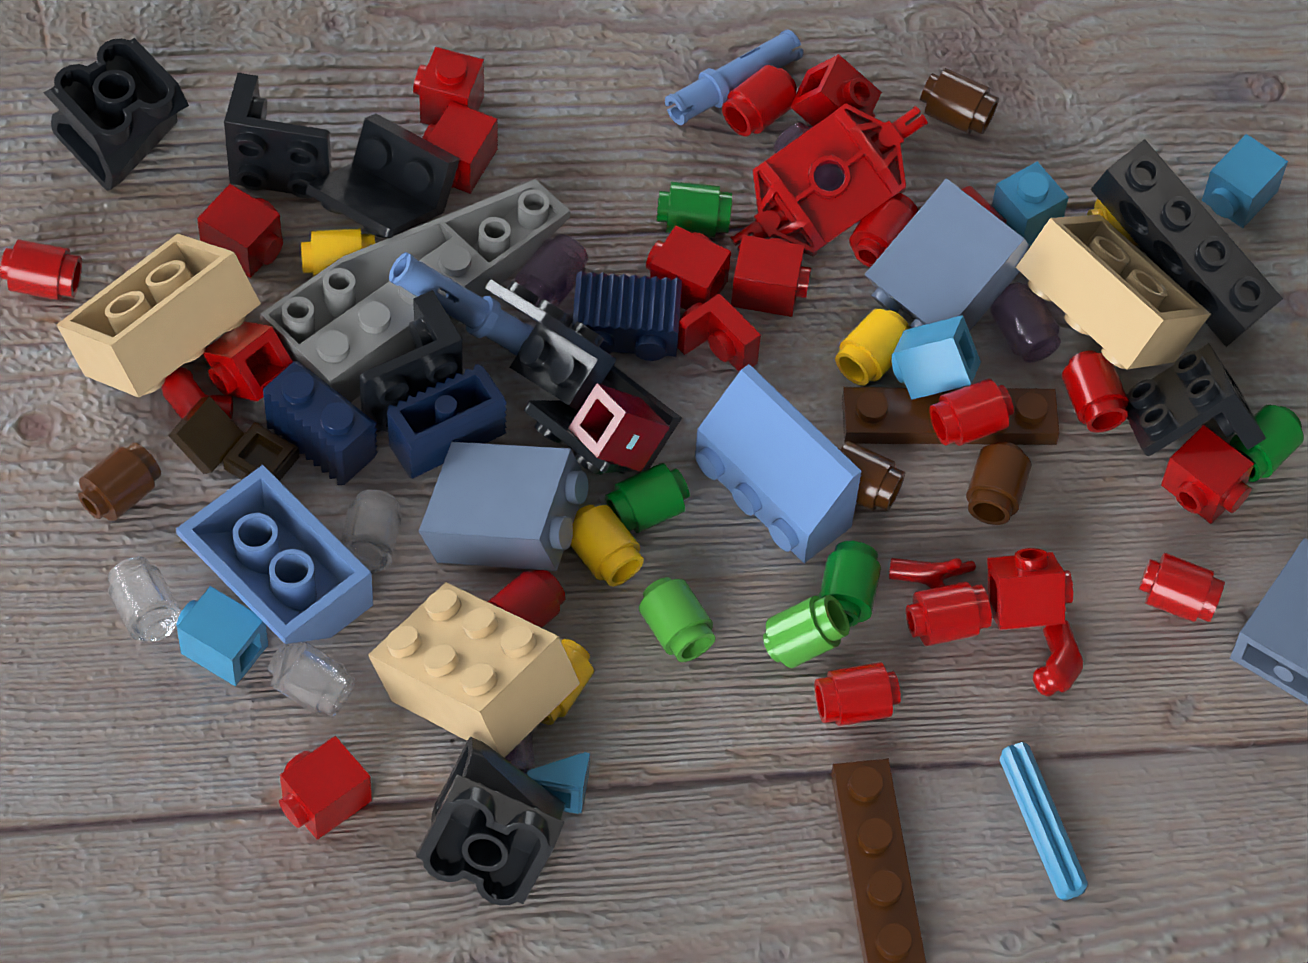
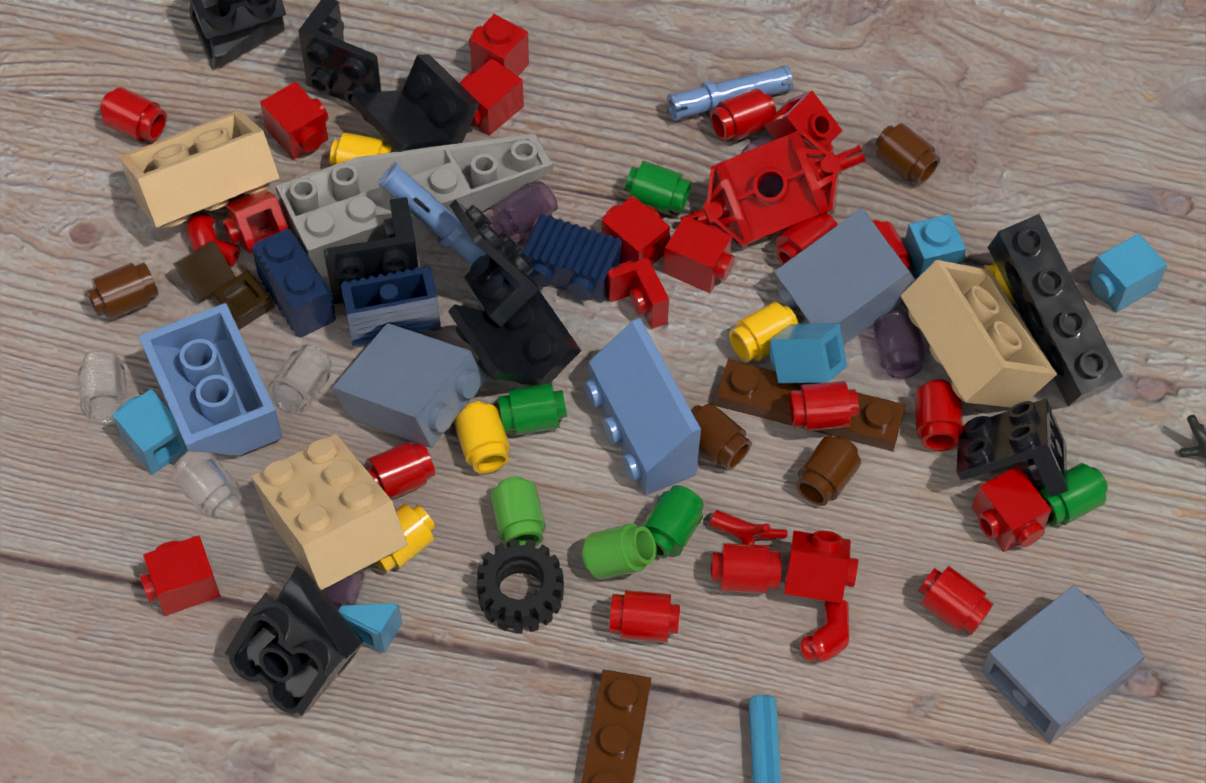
camera: 20 degrees right, 0 degrees up
(618, 427) = (518, 344): dark red brick -> none
(716, 669) = (520, 560): none -> black tyre

